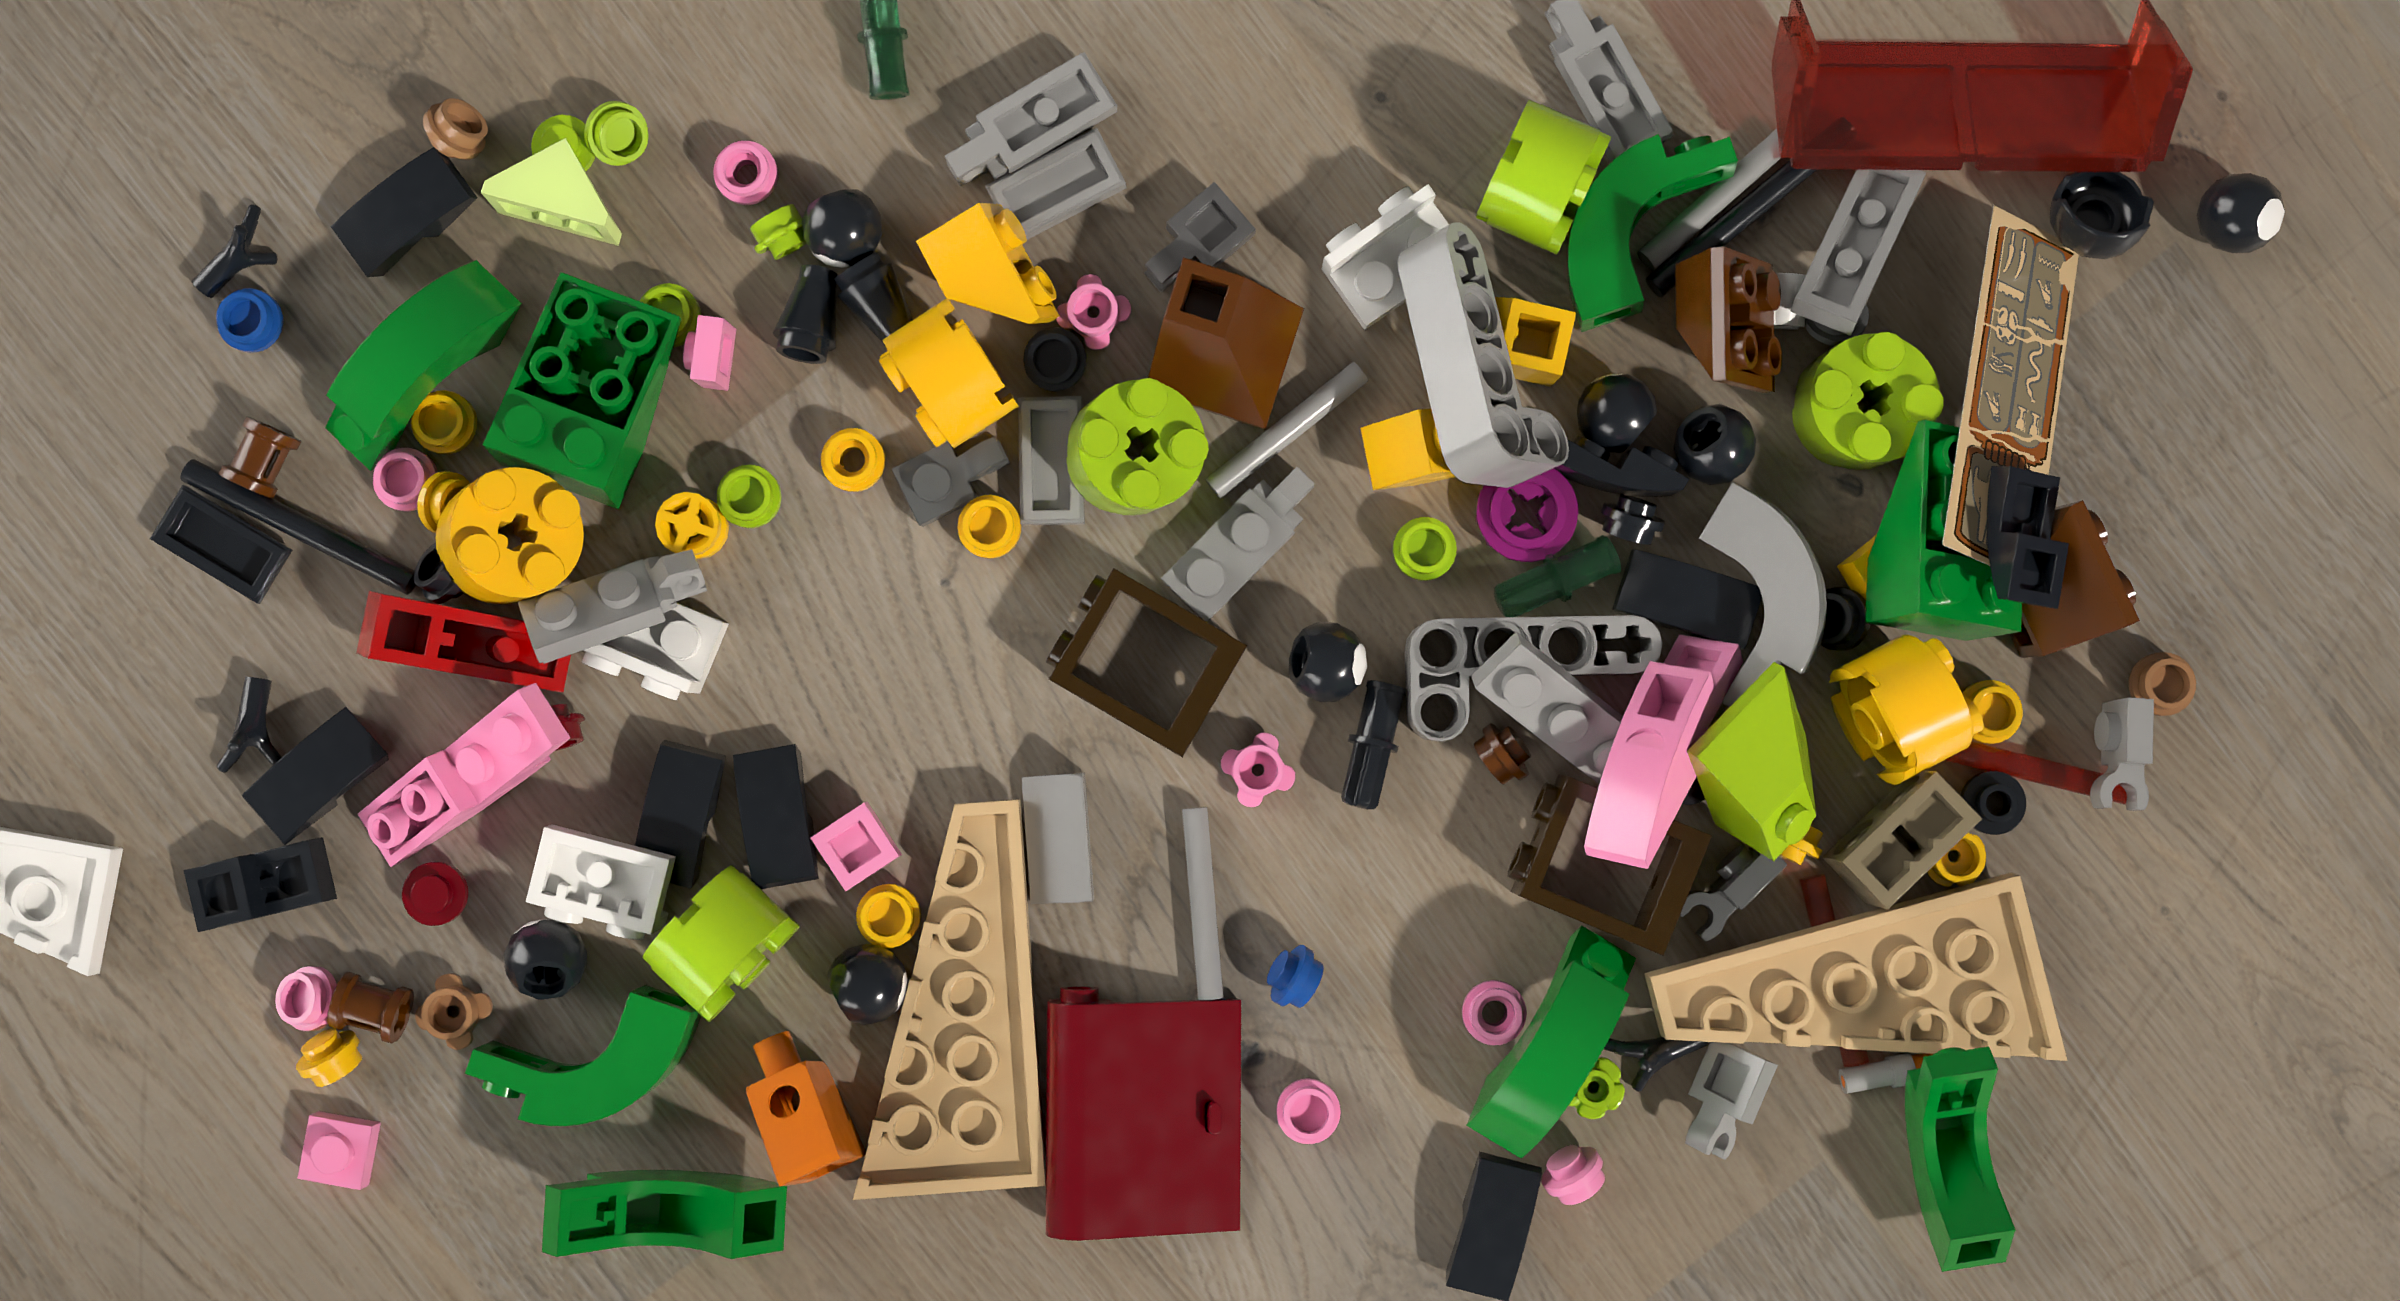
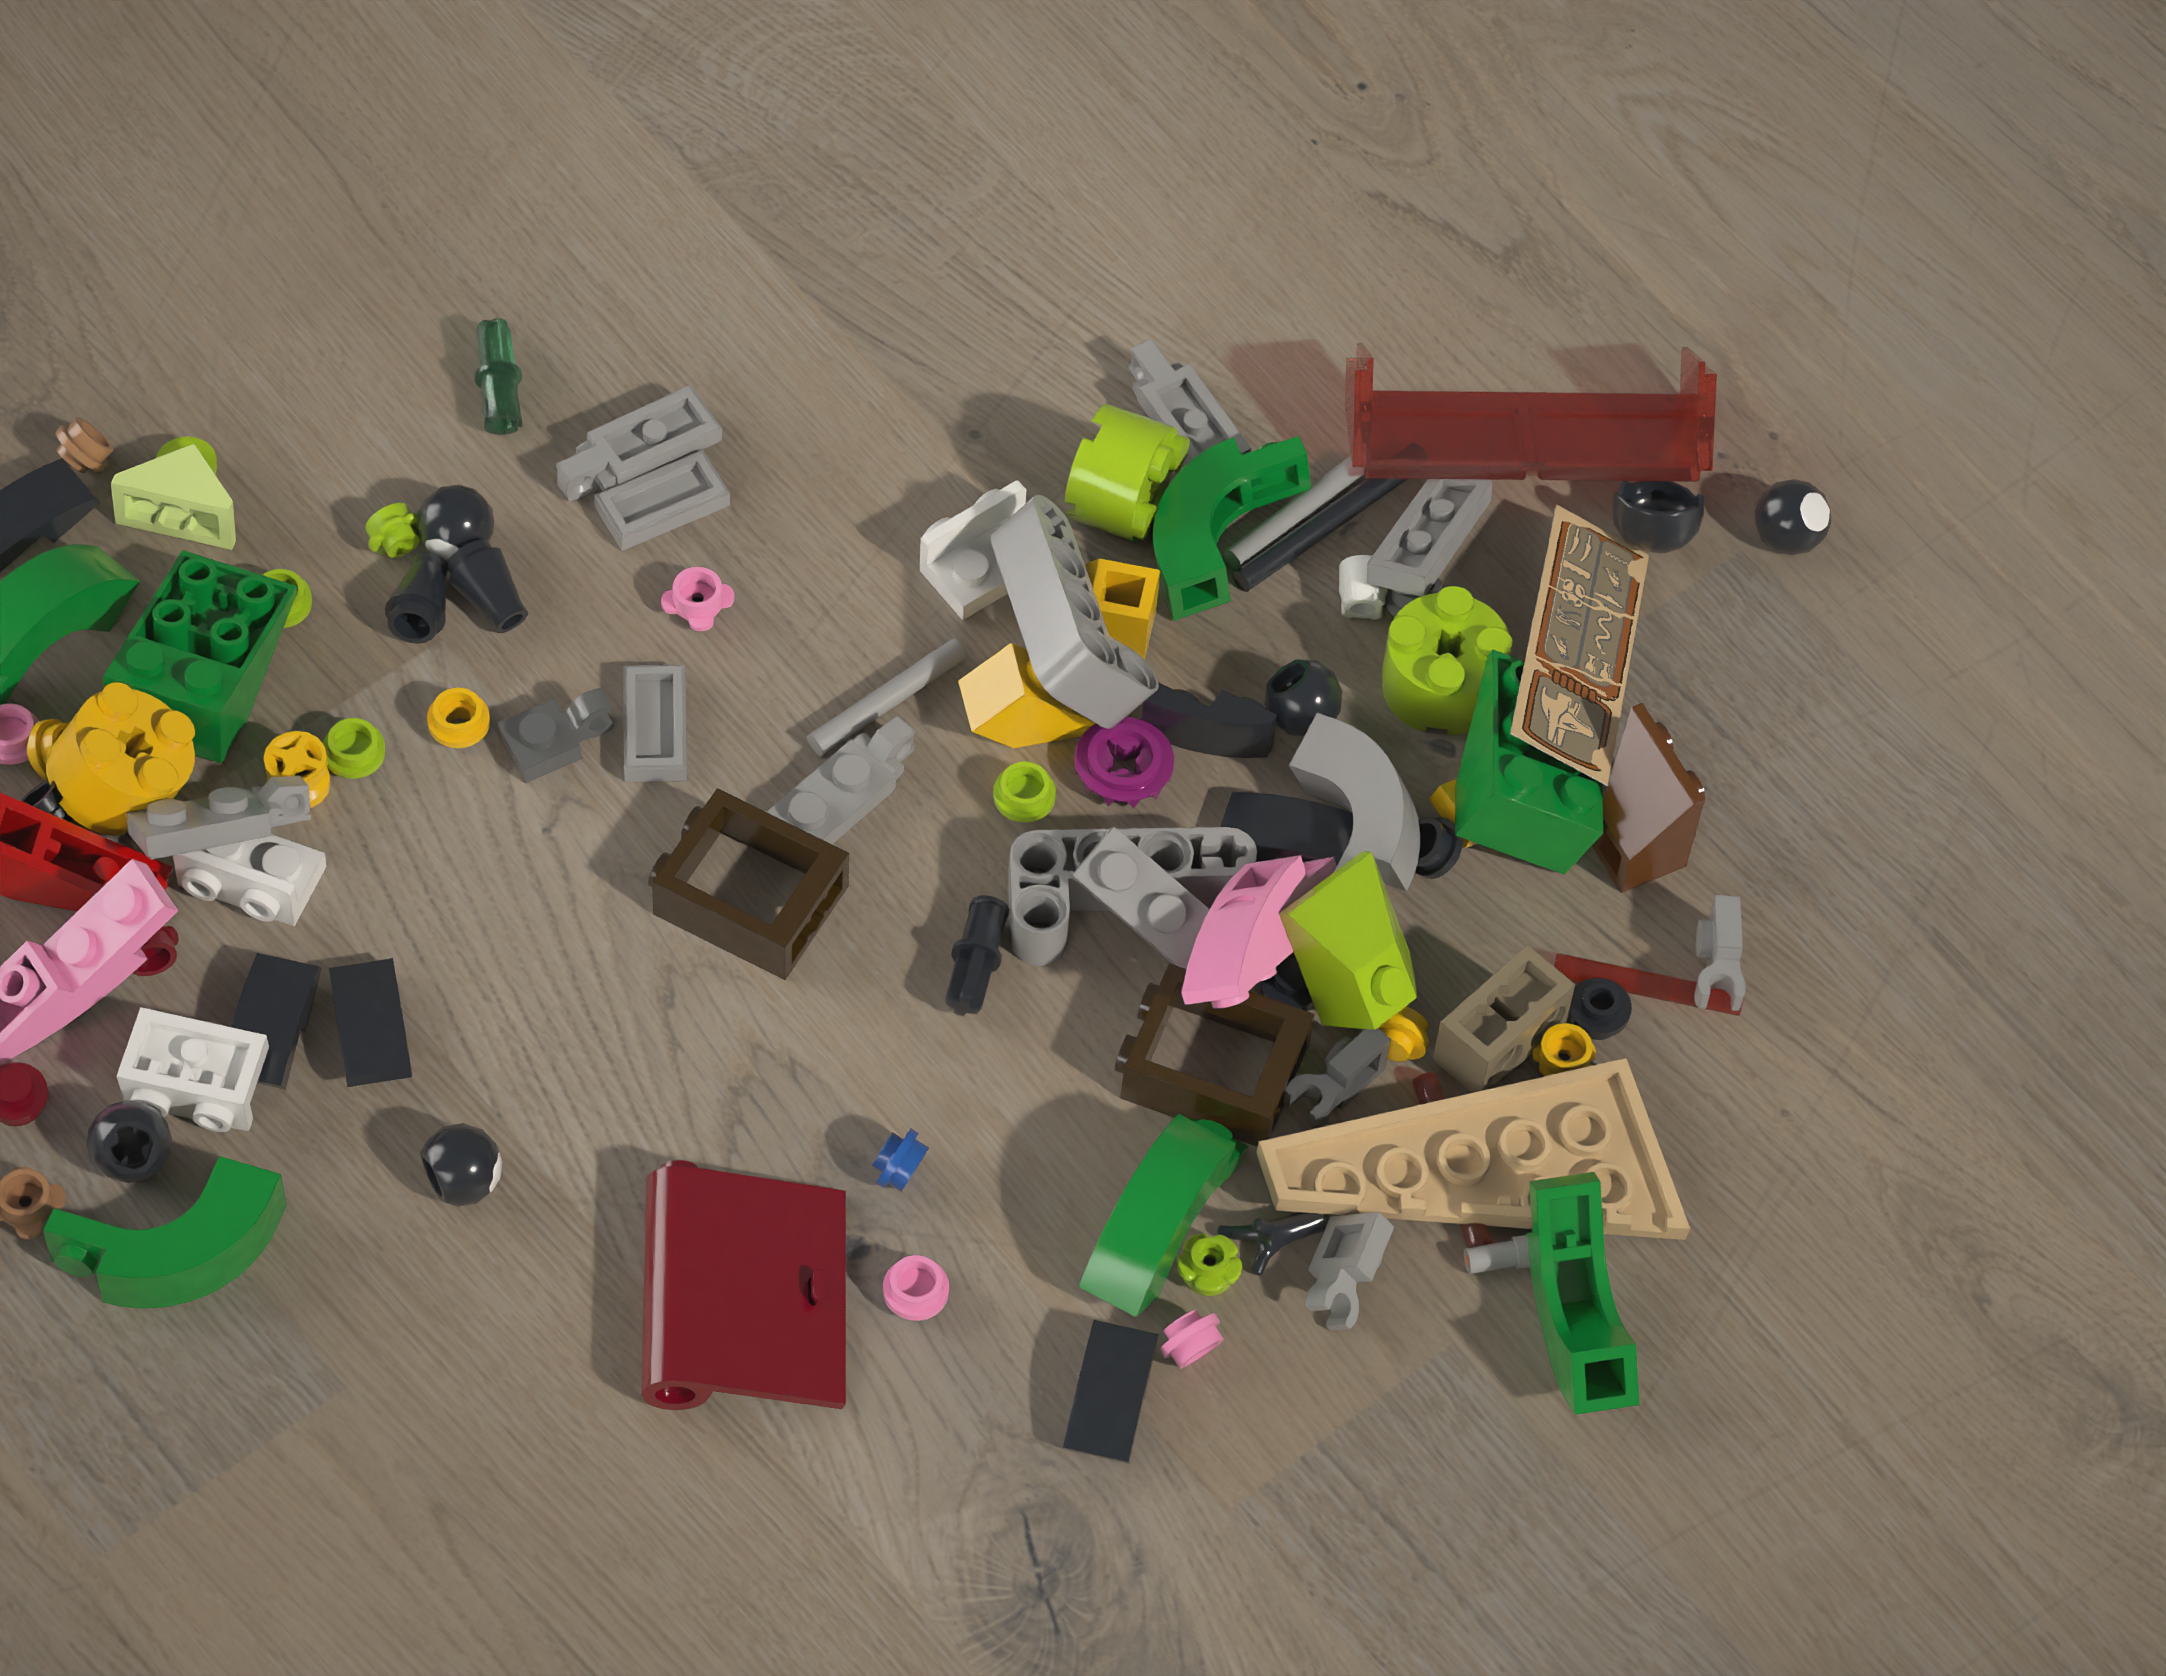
camera: 10 degrees left, 30 degrees down
(444, 422) = (52, 686): yellow plate -> none
(616, 133) = (239, 451): lime plate -> none
(665, 1208) = (247, 1376): green arch -> none
(710, 352) = (322, 624): bright pink plate -> none
(719, 942) = (313, 1110): lime brick -> none
(736, 156) = (361, 471): bright pink plate -> none
(816, 1135) = (382, 1258): orange torso -> none
(856, 846) = (452, 1046): bright pink plate -> none
(888, 915) = (485, 1107): yellow plate -> none
(947, 376) = (556, 630): yellow brick -> none
(964, 1059) = (559, 1233): tan wing -> none
(985, 266) = (592, 549): yellow slope -> none
(989, 526) = (592, 774): yellow plate -> none
(1055, 359) = (659, 635): black plate -> none
(1058, 838) = (658, 1043): light grey slope -> none
(1167, 464) = (738, 693): lime brick -> none
(1202, 903) = (805, 1099): light grey bar -> none
(1203, 231) = (803, 531): flat silver plate -> none
(1225, 343) = (823, 613): reddish brown slope -> none
(1262, 752) = (860, 966): bright pink plate -> none
(1327, 662) = (929, 879): black piece -> none
(1503, 753) = (1107, 962): reddish brown plate -> none
(1512, 1021) = (1098, 1181): bright pink plate -> none
(1557, 577) = (1164, 808): clear green axle -> none
(1615, 411) = (1206, 667): black piece -> none
(1632, 519) = (1226, 764): black plate -> none
(1729, 316) = (1309, 576): reddish brown slope -> none
(1904, 707) = (1496, 904): yellow brick -> none
(1999, 709) = (1590, 929): yellow plate -> none
(2019, 529) = (1590, 734): black slope -> none
(2166, 680) = (1763, 905): medium nougat plate -> none

